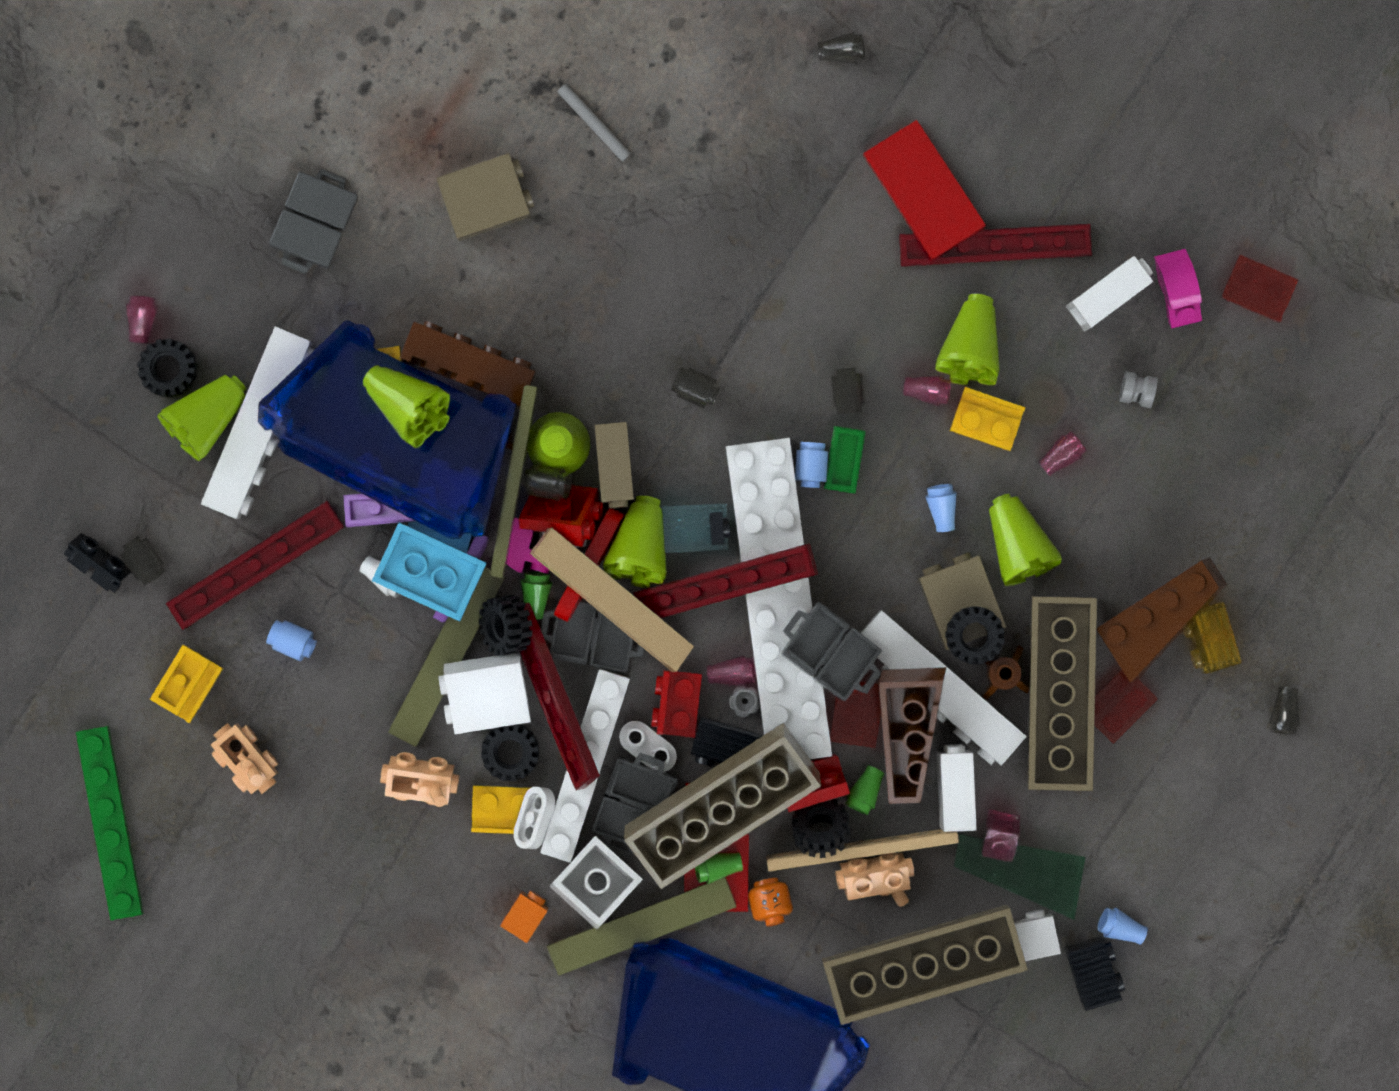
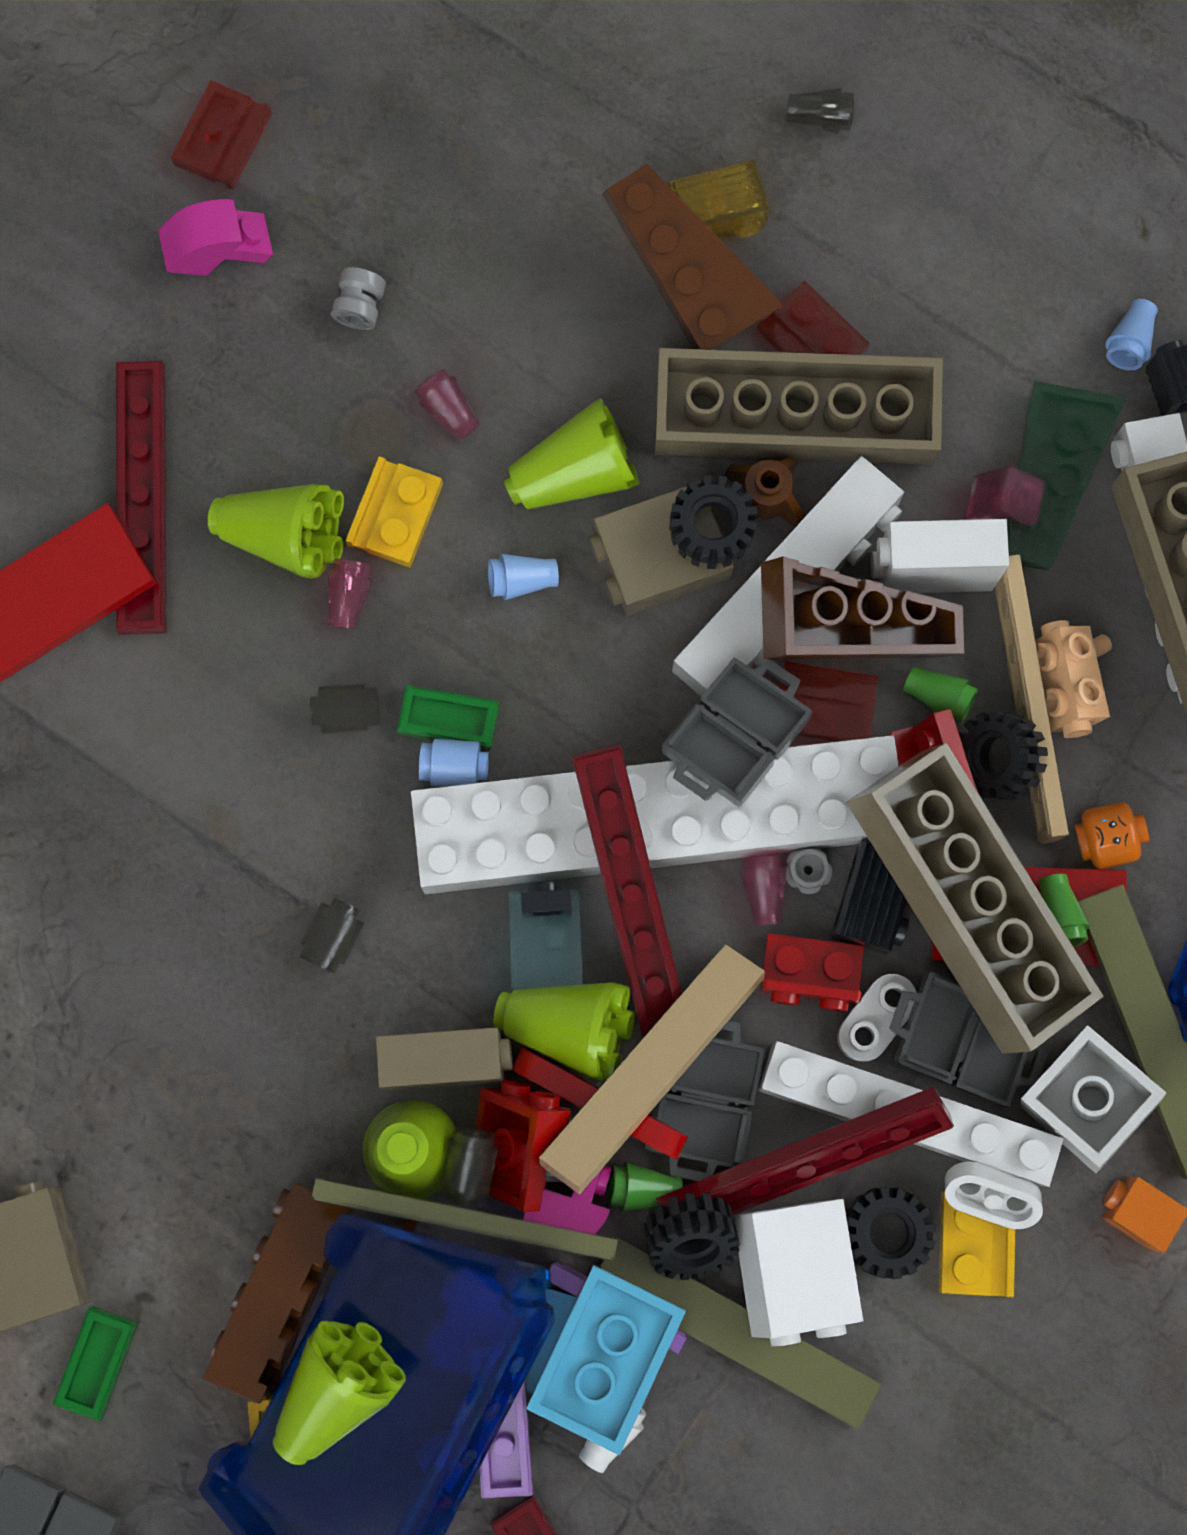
camera: 90 degrees left, 10 degrees down
(419, 779) = (934, 1379): light nougat brick -> none
(420, 246) = (95, 1363): none -> green tile
(1110, 292) = (215, 328): white brick -> none

